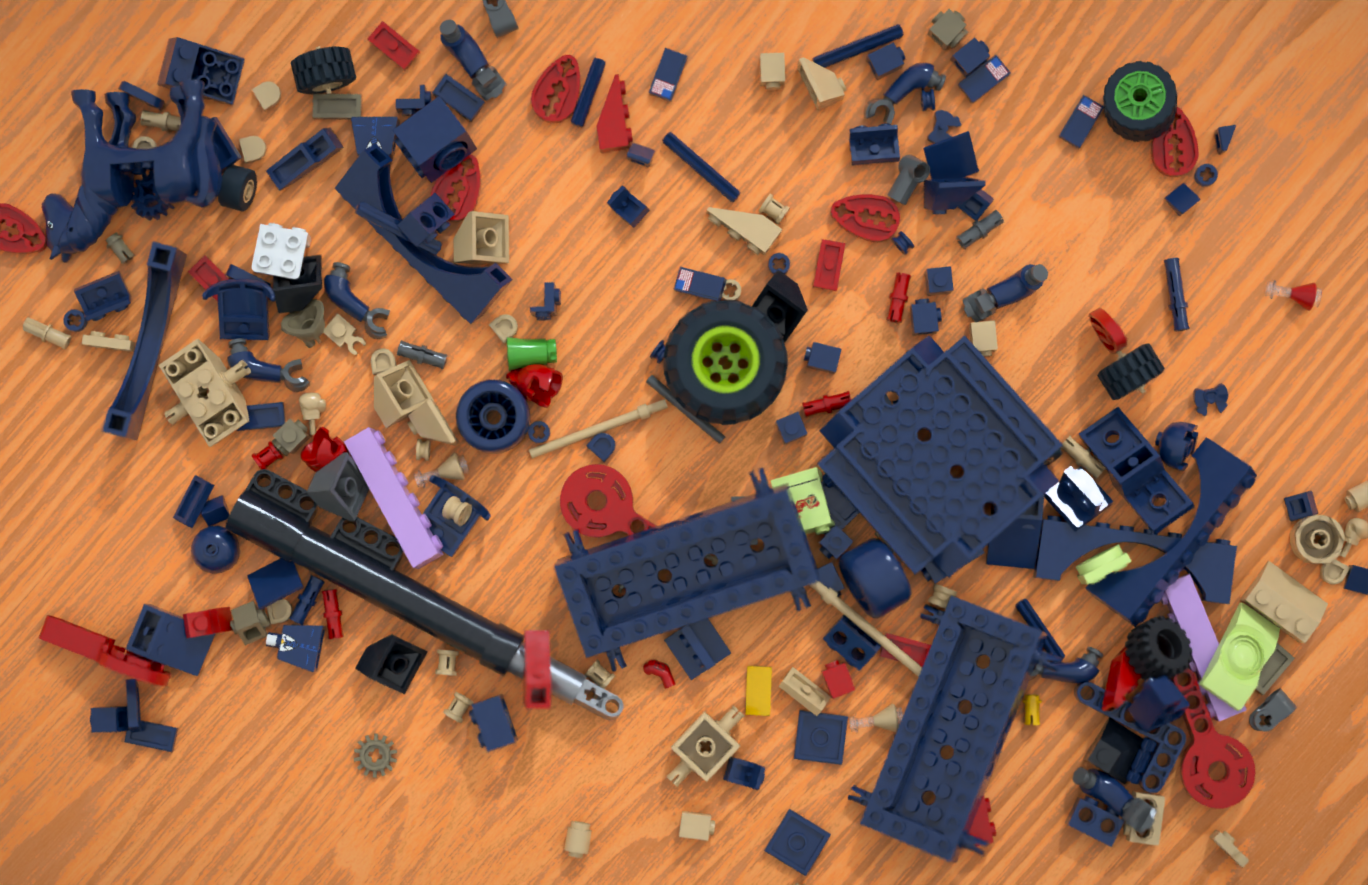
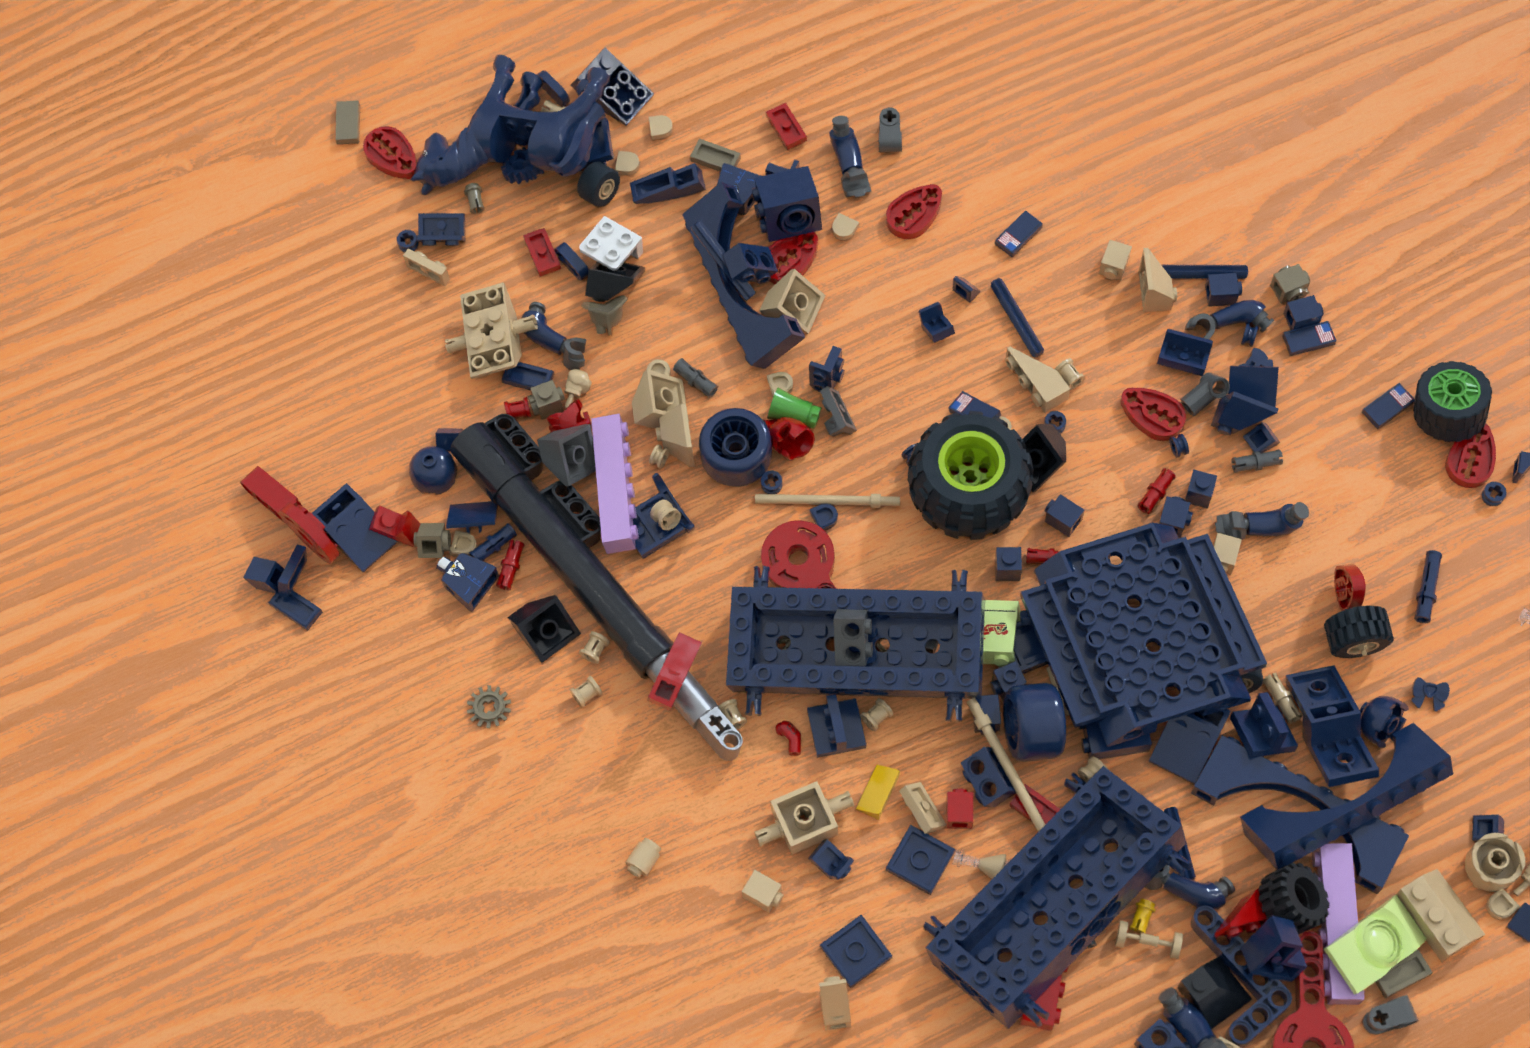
camera: 25 degrees right, 20 degrees down
(46, 333) = (378, 241): tan axle -> none
(164, 275) = (415, 321): dark blue arch -> none
(193, 501) = (434, 422): dark blue tile -> none
(242, 308) = (555, 278): dark blue piece -> none
(323, 70) = (716, 117): black wheel -> none
(339, 292) = (646, 300): piece -> none
(342, 332) = (633, 335): tan plate -> none
(453, 468) = (679, 482): piece -> none
(458, 97) = (827, 189): dark blue tile -> none
(493, 723) = (612, 714): dark blue piece -> none
(496, 134) = (844, 227): none -> tan tile
(578, 343) = (841, 420): none -> dark grey hinge
(588, 92) = (941, 222): dark blue axle -> none
(611, 123) = (951, 250): red slope -> none
(666, 393) = (916, 515): dark grey bar -> none
(683, 573) = (847, 637): none -> dark grey brick
(729, 622) = (876, 714): none -> tan bush
(829, 265) = (1101, 439): red plate -> none
(1069, 725) = (1149, 939): none -> tan wheel
(1101, 564) = (1268, 795): yellowish green piece -> none
(1141, 760) = (1236, 1008): dark blue axle -> none
(1182, 199) = (1463, 507): dark blue slope -> none

